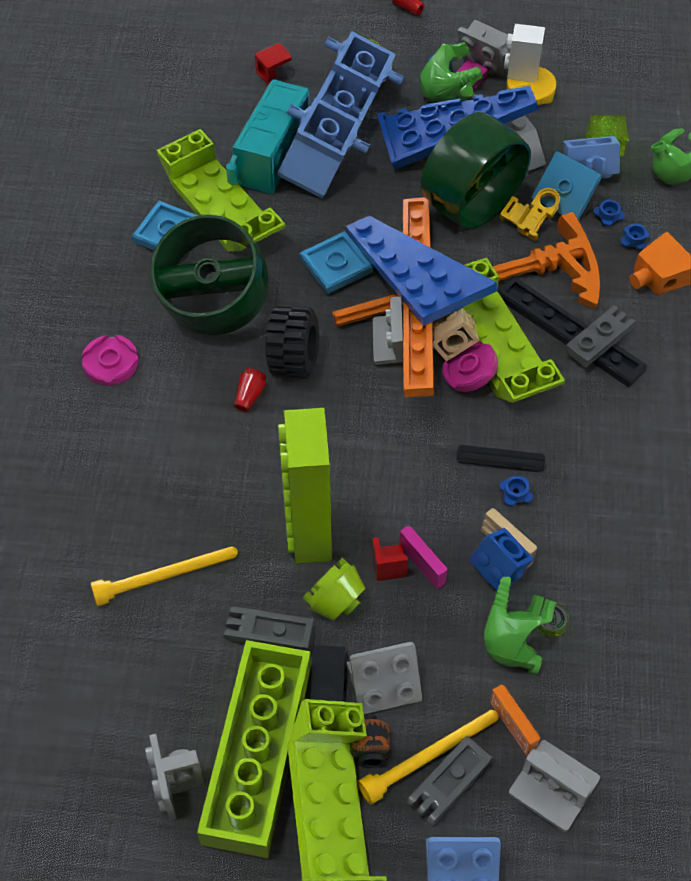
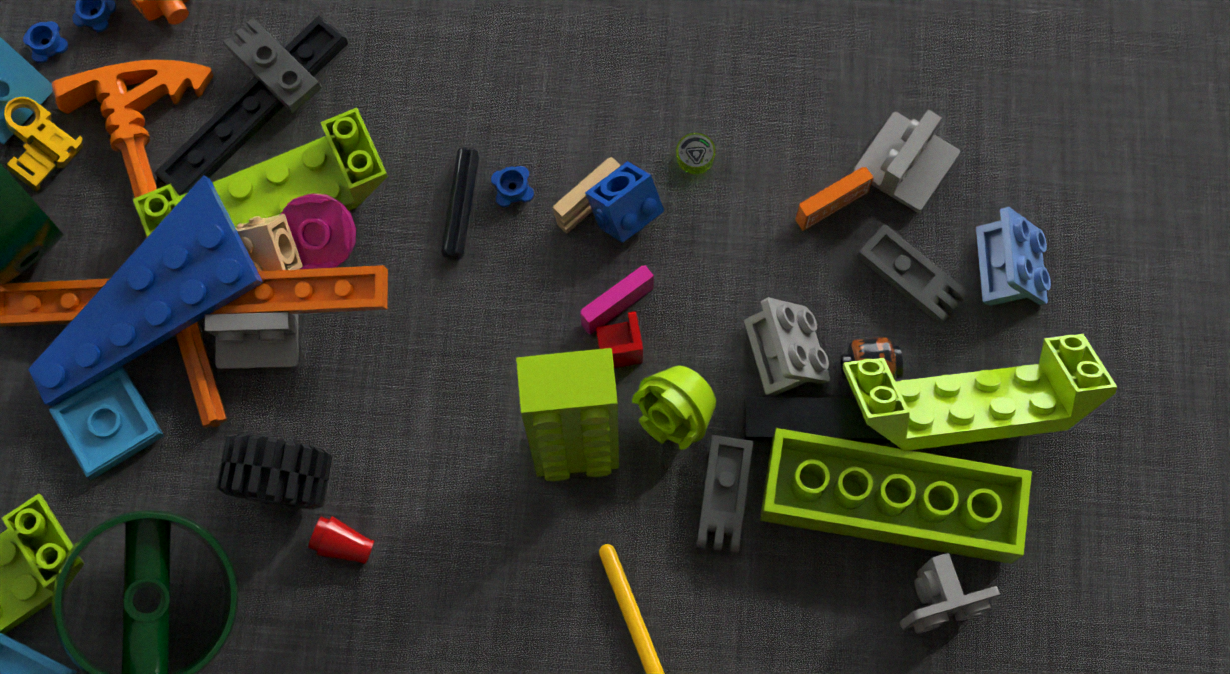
camera: 90 degrees left, 15 degrees up
(375, 786) = (924, 358): yellow piece -> none
(507, 631) = (746, 185): bright green piece -> none

